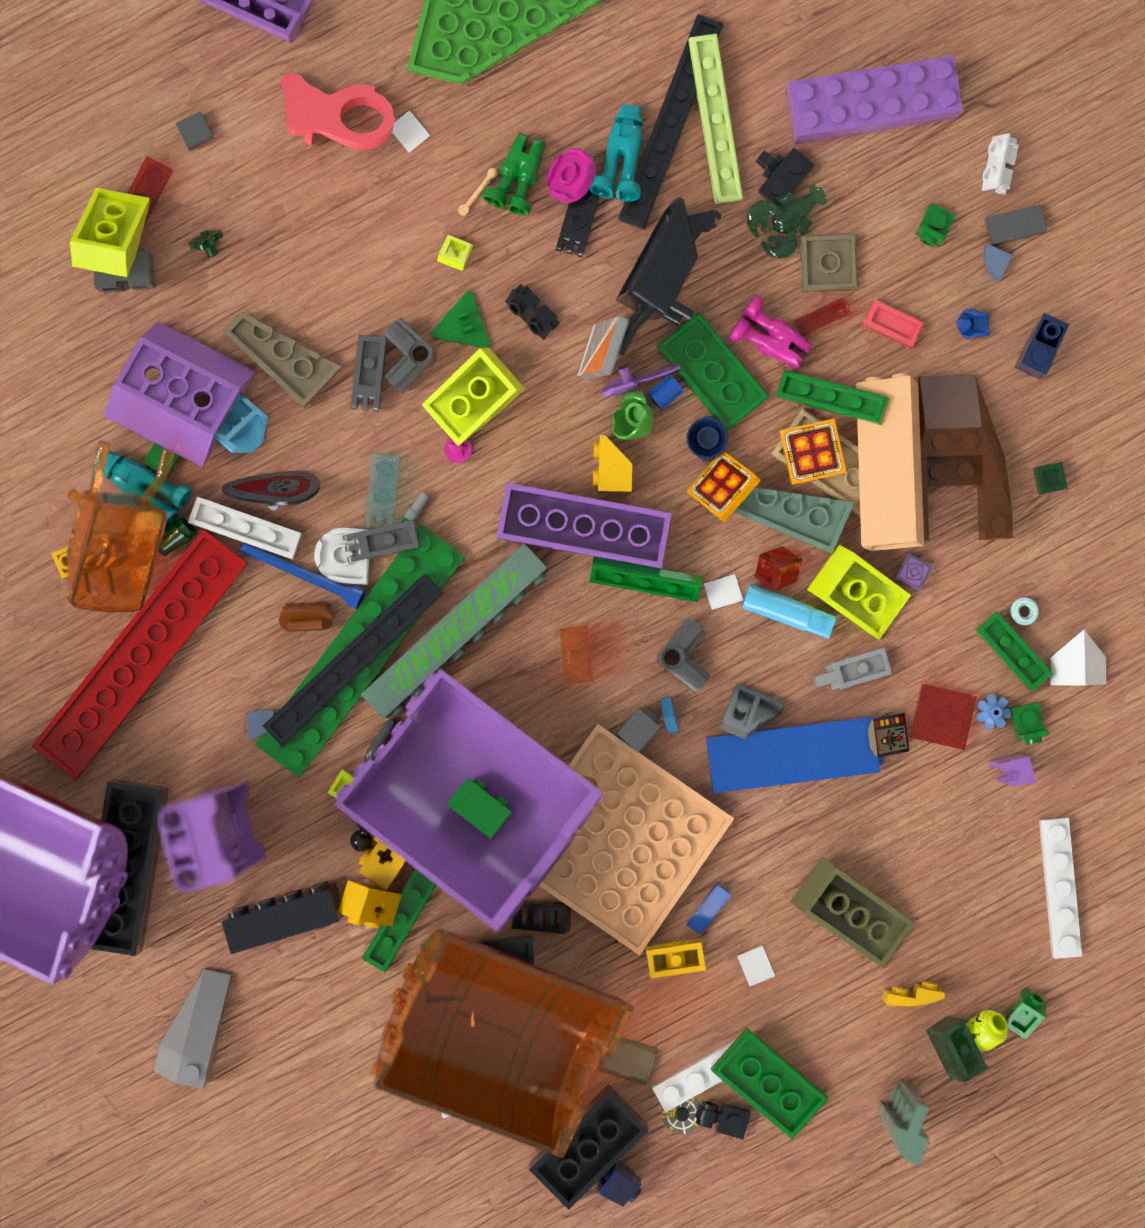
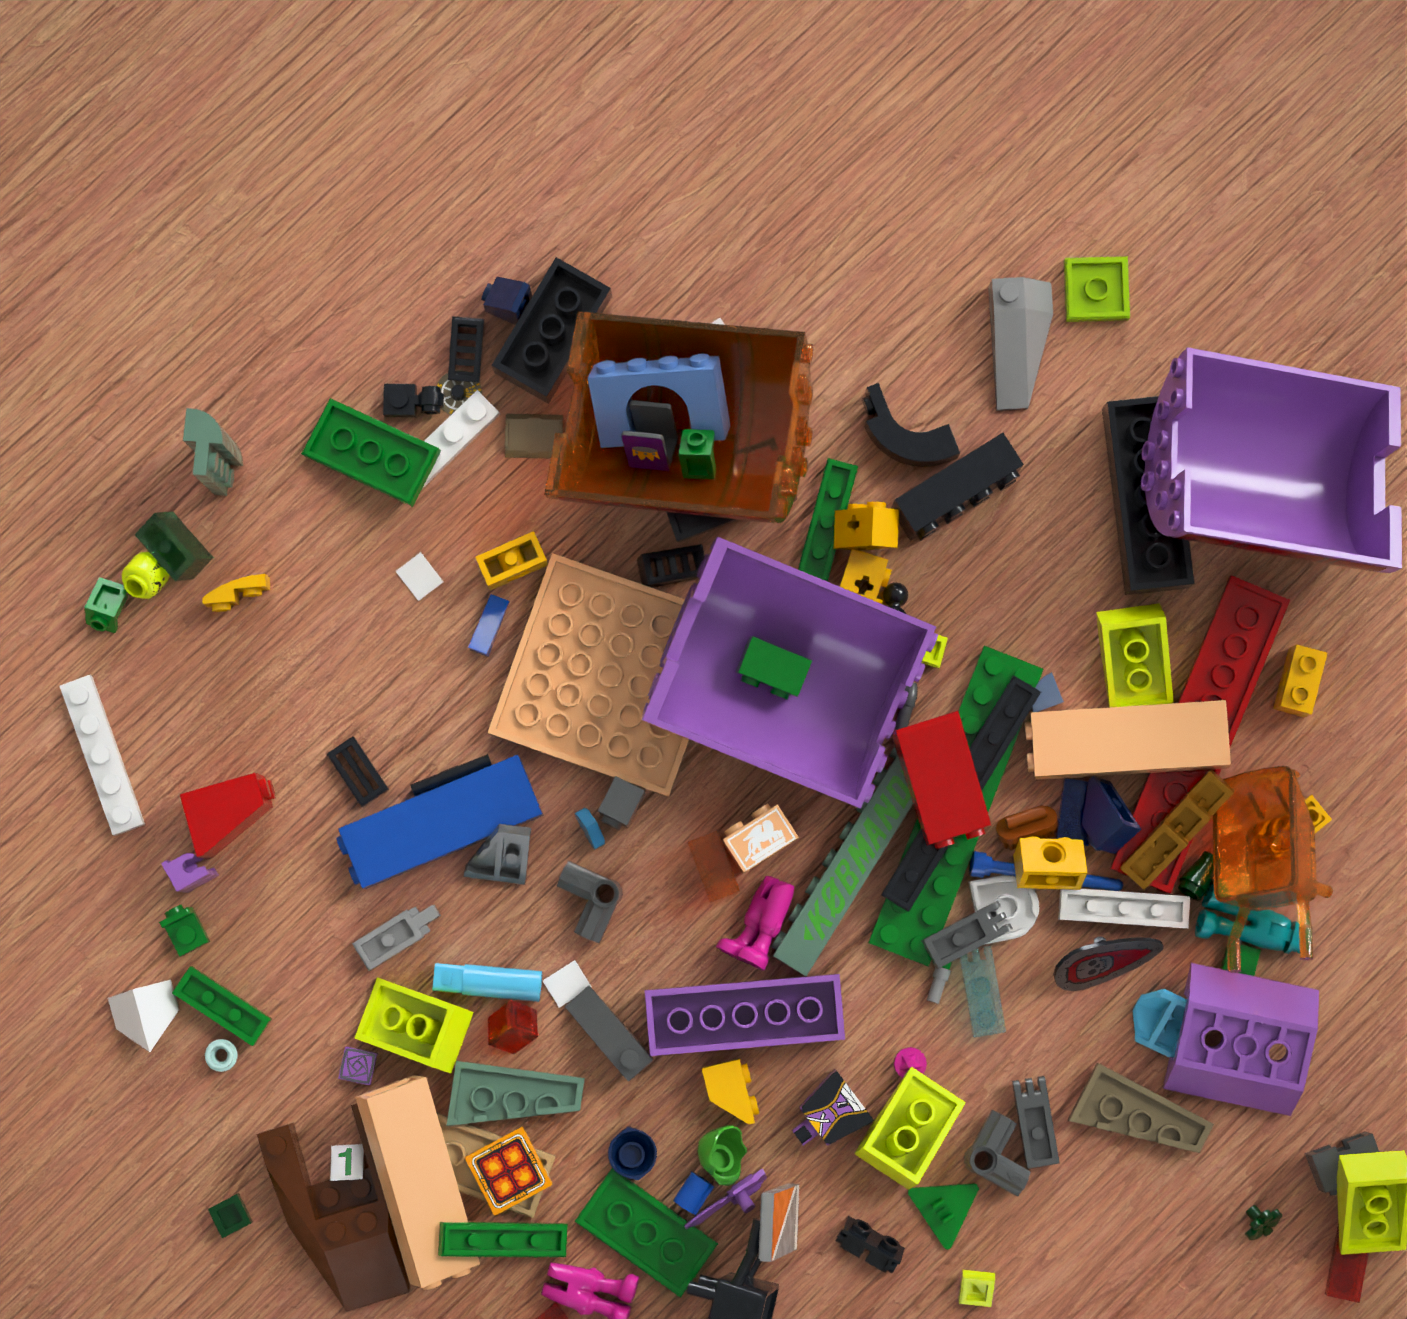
camera: 165 degrees right, 5 degrees down
(43, 675) = (1300, 681): none -> yellow brick
(116, 1055) = (1096, 289): none -> lime tile
(175, 732) = (1135, 656): none -> neon yellow slope
(181, 580) = (1177, 829): none -> pearl gold slope
(200, 665) = (1129, 740): none -> light nougat brick
(210, 838) = (1060, 553): medium lavender piece -> none
(237, 606) = (1107, 817): none -> dark blue slope
(262, 618) = (1072, 810): none -> clear blue plate
(310, 577) = (1034, 870): none -> yellow brick
(319, 966) = (902, 445): none -> black arch
(365, 674) = (942, 779): none -> red slope
(479, 1072) = (694, 379): none -> medium blue arch
(495, 1006) = (697, 454): none -> green bracket
(527, 1029) = (654, 438): none -> piece
(531, 668) = (759, 838): none -> brick
(534, 427) = (831, 1112): none -> black torso
(547, 601) = (763, 916): none -> dark pink piece
(645, 579) = (658, 973): green tile -> none
(649, 1169) = (454, 348): none -> black slope
(699, 541) = (609, 1033): none -> dark grey slope
(723, 486) = (599, 1103): tile -> none
(774, 791) = (450, 775): none -> black piece
(843, 793) = (372, 794): none -> black tile
(852, 912) = (328, 664): olive slope -> none
(888, 735) = (339, 872): piece -> none
(943, 495) = (346, 1162): none -> white sticker
(943, 716) = (282, 910): clear red tile -> none
(971, 812) = (225, 811): none -> red slope
(987, 711) = (234, 931): medium blue plant -> none

